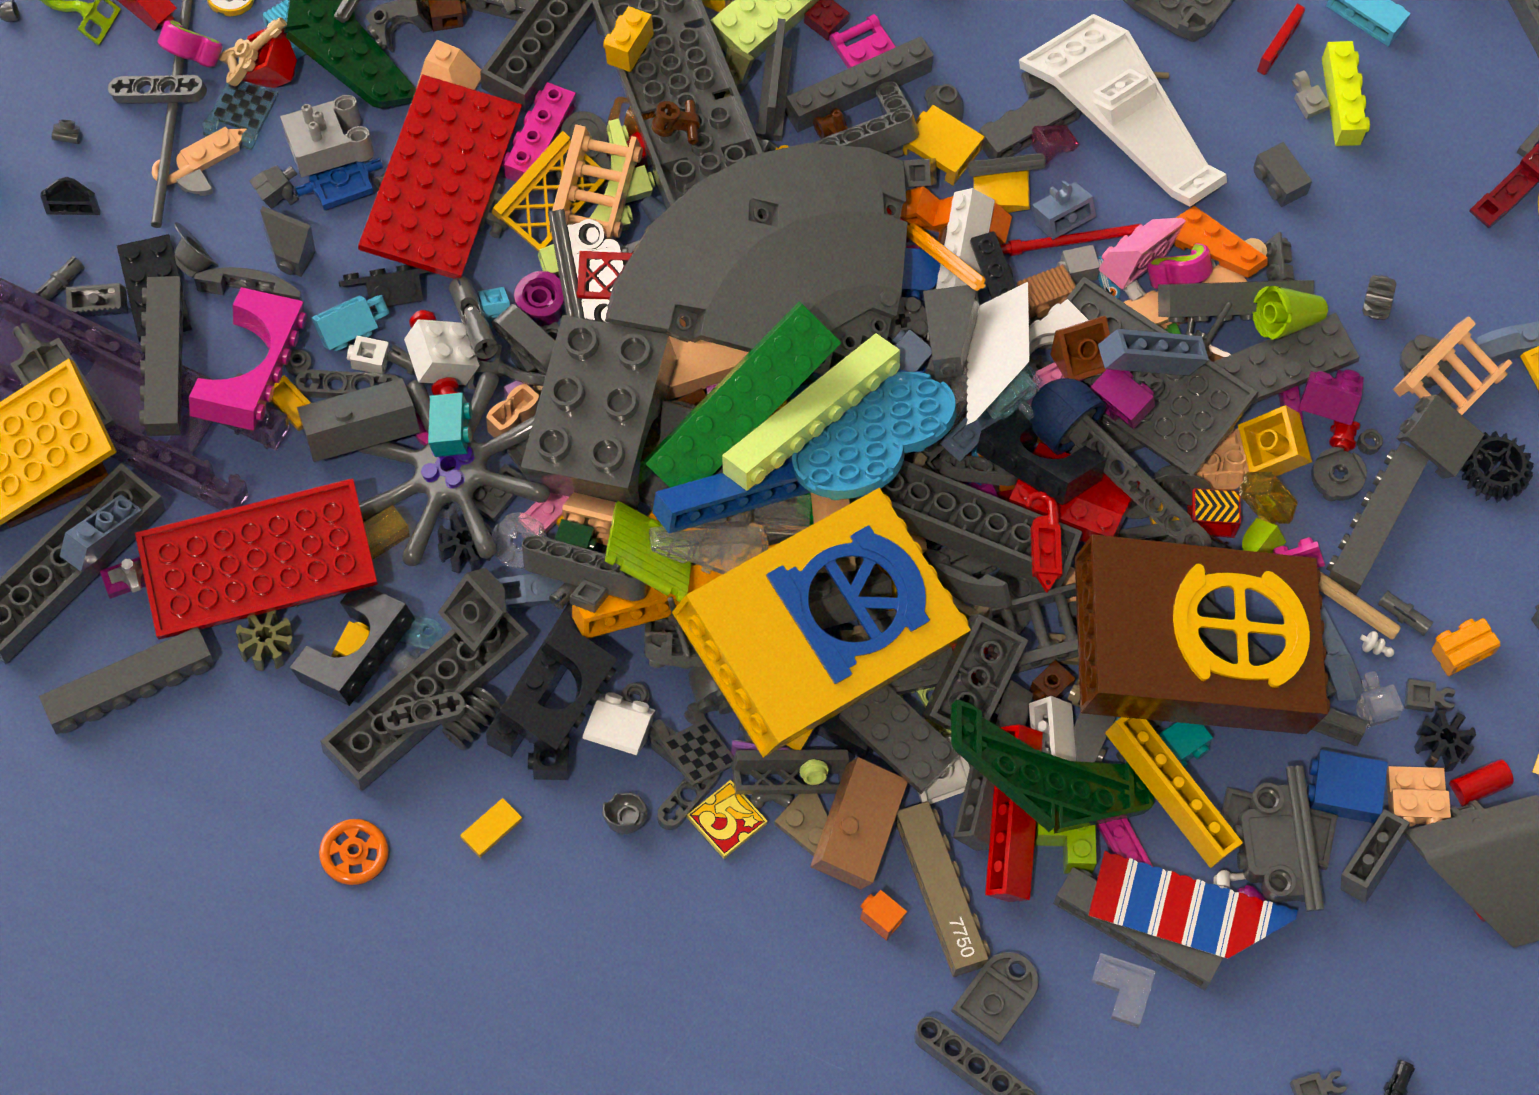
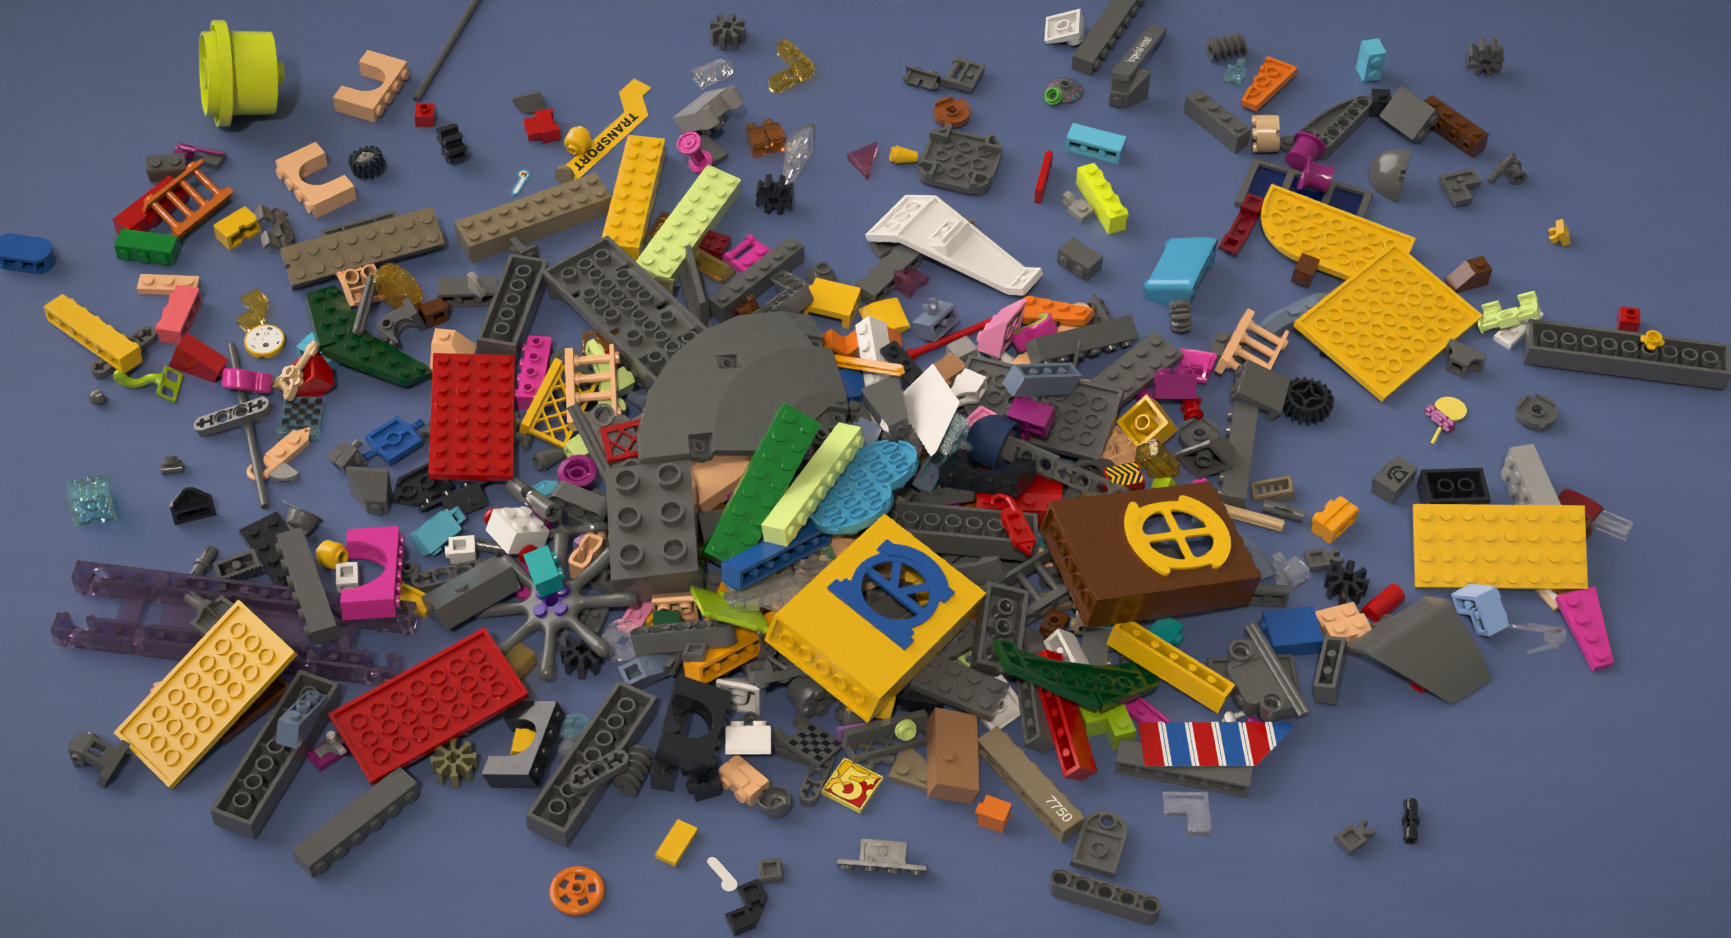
camera: 15 degrees left, 15 degrees down
(213, 314) = (331, 553): none -> yellow head
(215, 355) = (347, 576): none -> white brick
(216, 280) = (339, 525): dark grey slope -> none
(318, 137) = (375, 413): light grey piece -> none
(340, 253) = (415, 487): none -> black tile
(475, 607) = (611, 688): dark grey slope -> none
(515, 258) = (546, 458): none -> dark grey cone
(535, 899) = (728, 882): none -> white sticker
(540, 952) = (748, 916): none -> black tile
(588, 900) = (770, 871): none -> dark grey tile
(597, 773) = (742, 780): none -> light nougat brick
(628, 39) = (581, 285): yellow brick -> none
(631, 658) = (744, 694): none -> white slope
(676, 120) = (638, 324): reddish brown piece -> none
(727, 926) = (882, 854): none -> bracket
(810, 49) = (713, 267): none -> clear yellow brick
(920, 172) = (825, 320): dark grey brick -> none
(1006, 164) = (883, 302): dark grey axle -> none
(1077, 349) = (988, 396): dark orange slope -> none
(1286, 311) = (1120, 337): lime cone -> none
(1335, 512) = (1208, 457): none -> dark grey slope
(1368, 449) = (1211, 415): dark grey axle -> none
(1377, 371) = (1200, 362): none -> dark pink piece
(1378, 646) = (1273, 537): white hair -> none
(1406, 230) = (1180, 269): none -> dark azure windscreen
(1412, 589) = (1281, 495): none -> dark tan slope

